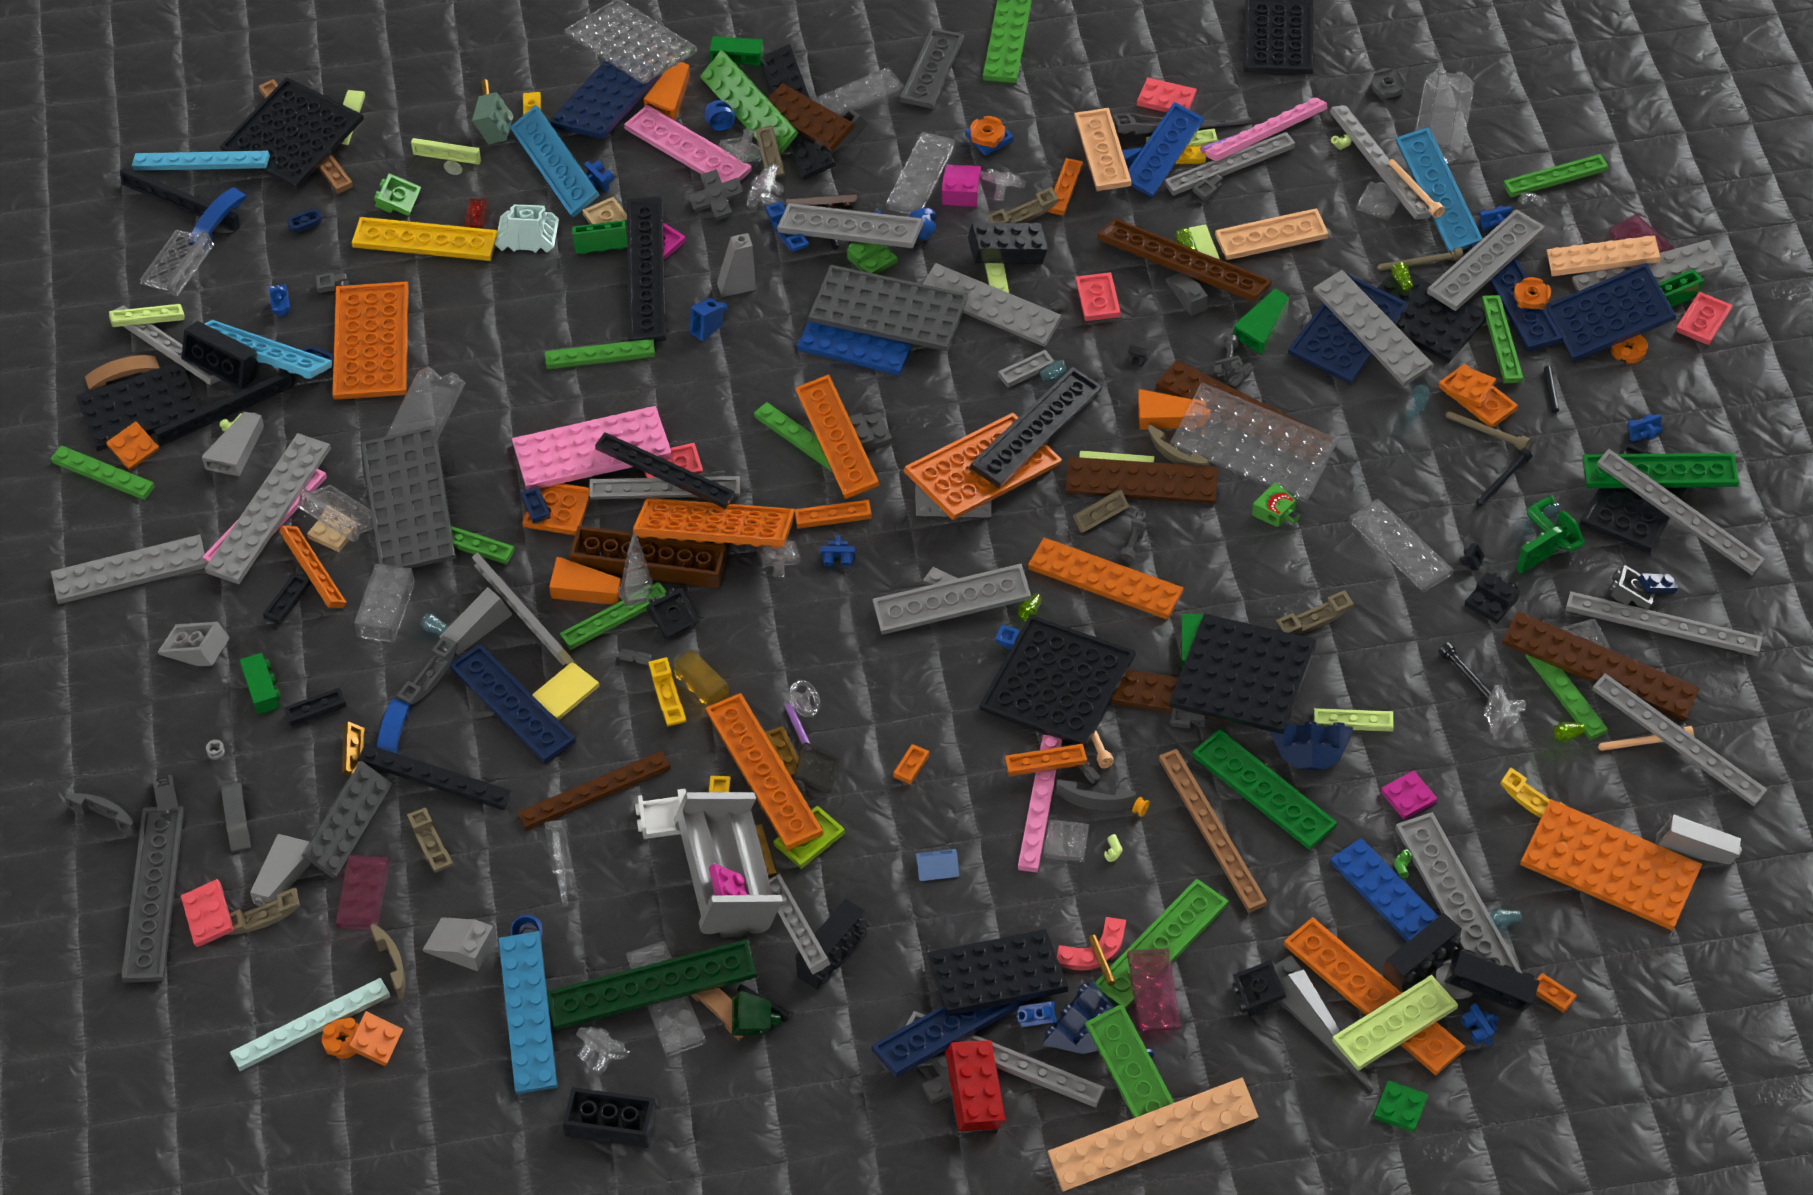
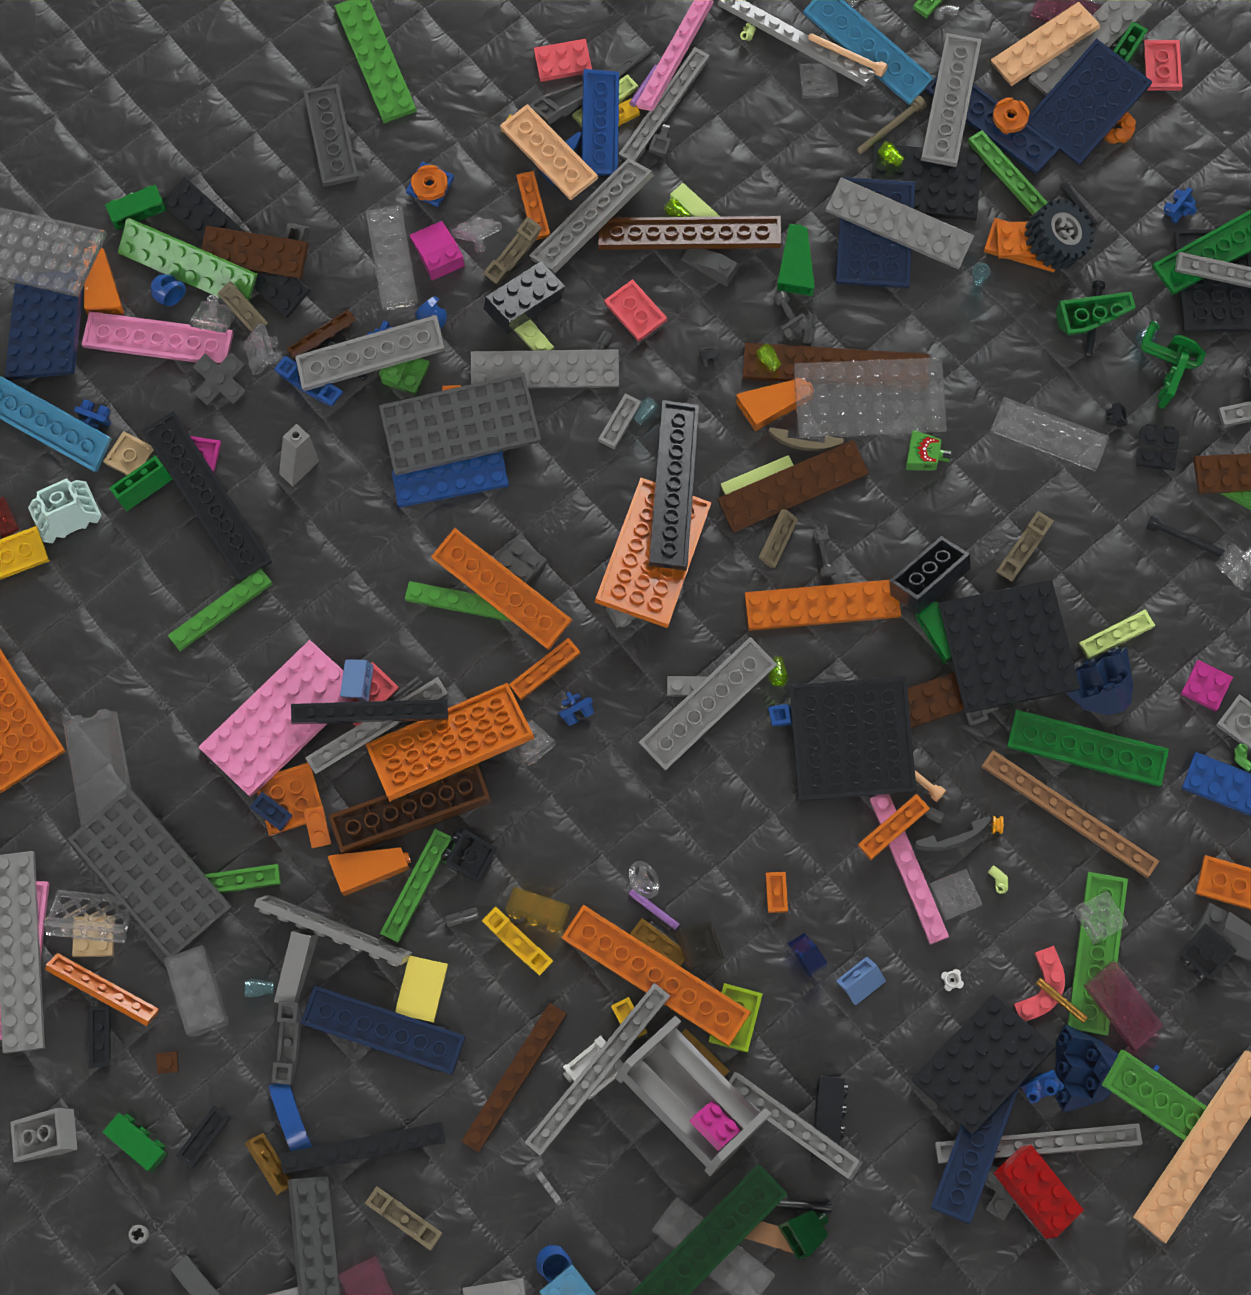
camera: 30 degrees left, 20 degrees up
(325, 644) = (167, 1063): none -> reddish brown plate
(564, 535) = (317, 826): none -> orange plate
(636, 576) = (418, 843): clear slope -> none
(655, 809) = (597, 1069): none -> light grey plate
(672, 444) = (357, 680): none -> medium blue panel
(706, 318) = (298, 520): blue torso -> none
(862, 92) = (281, 197): clear plate -> none
(904, 824) = (808, 954): none -> clear blue slope
(1017, 897) = (955, 974): none -> white plate
(1109, 211) = (591, 215): none -> light grey plate
(1180, 913) = (1100, 917): none -> clear bracket
(1186, 373) = (768, 356): none -> clear neon green cone
(1212, 591) = (930, 574): none -> black brick
(1271, 234) = (746, 164): light nougat plate -> none
(1493, 218) = (931, 48): blue hips -> none
(1498, 464) = (1087, 313): none -> green wedge
(1503, 403) = (1059, 234): none -> black wheel
(1520, 442) = (1087, 274): dark tan piece -> none

